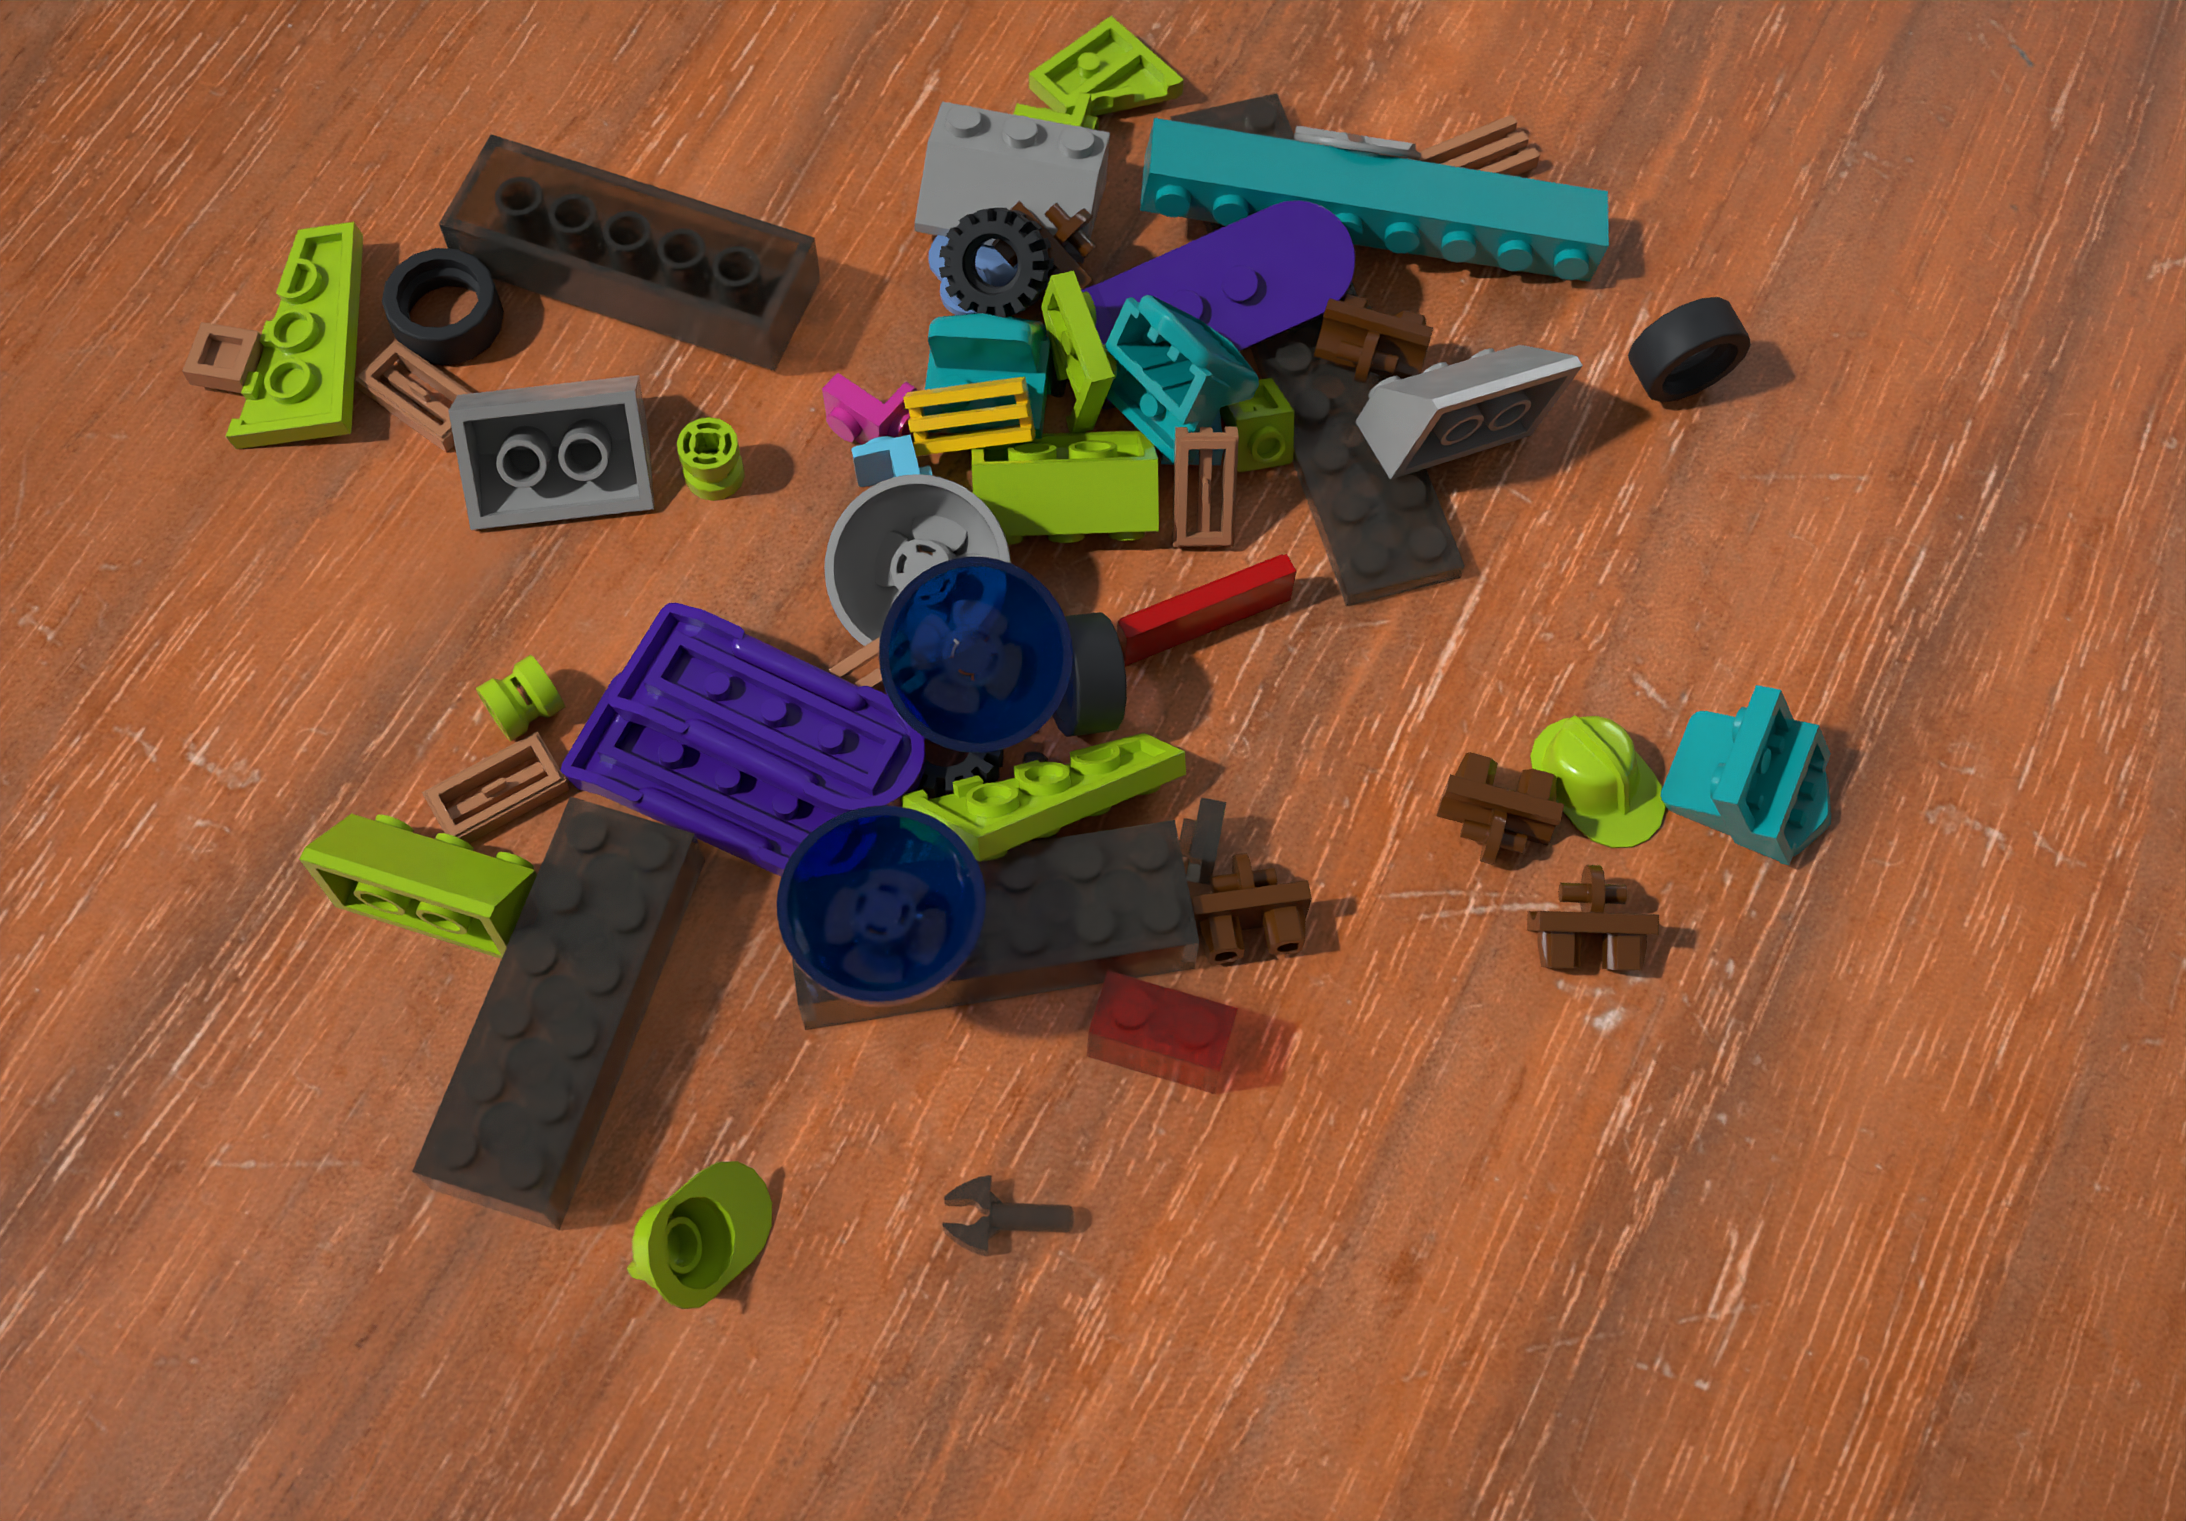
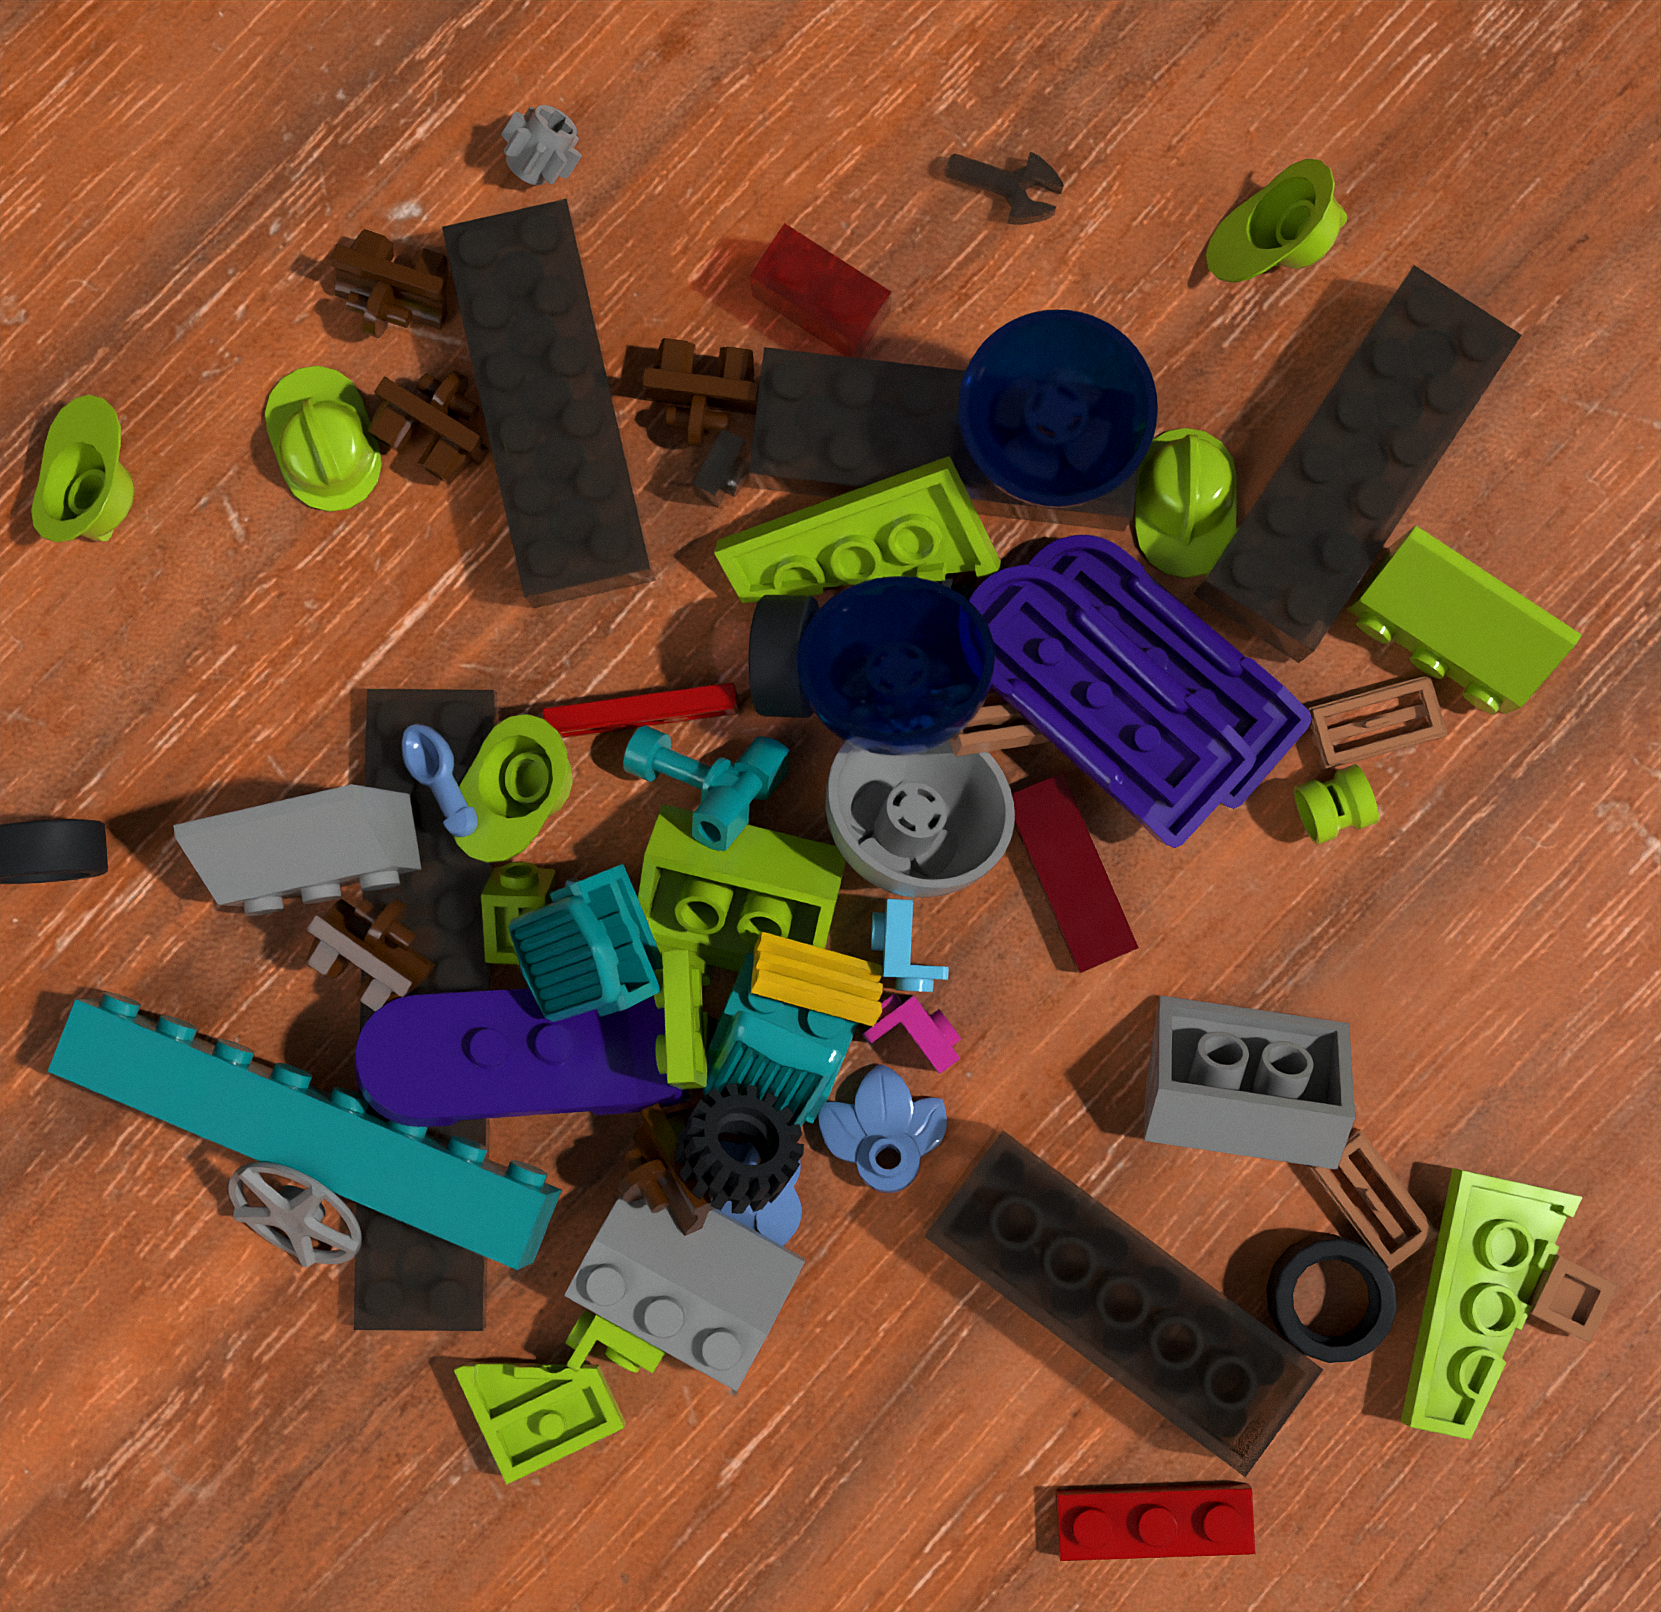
camera: 155 degrees left, 20 degrees up
(571, 117) = (1155, 1522): none -> red plate
(710, 458) = (1082, 1021): lime wheel -> none
(734, 951) = (1185, 502): none -> lime piece
(762, 584) = (1071, 873): none -> dark red tile
(874, 347) = (883, 1120): none -> medium blue plate
(1103, 556) = (724, 785): none -> teal bar
(1205, 442) = (595, 851): nougat tile -> none
(1299, 501) = (514, 787): none -> lime piece
(1377, 501) = (432, 765): none -> medium blue piece
(1395, 855) = (548, 404): none -> clear smoke brick
(1485, 144) = (113, 1192): nougat tile -> none
(1497, 1102) = (541, 145): none -> light grey gear
(1753, 776) = (185, 380): teal piece -> none
(1802, 657) = (80, 476): none -> lime piece

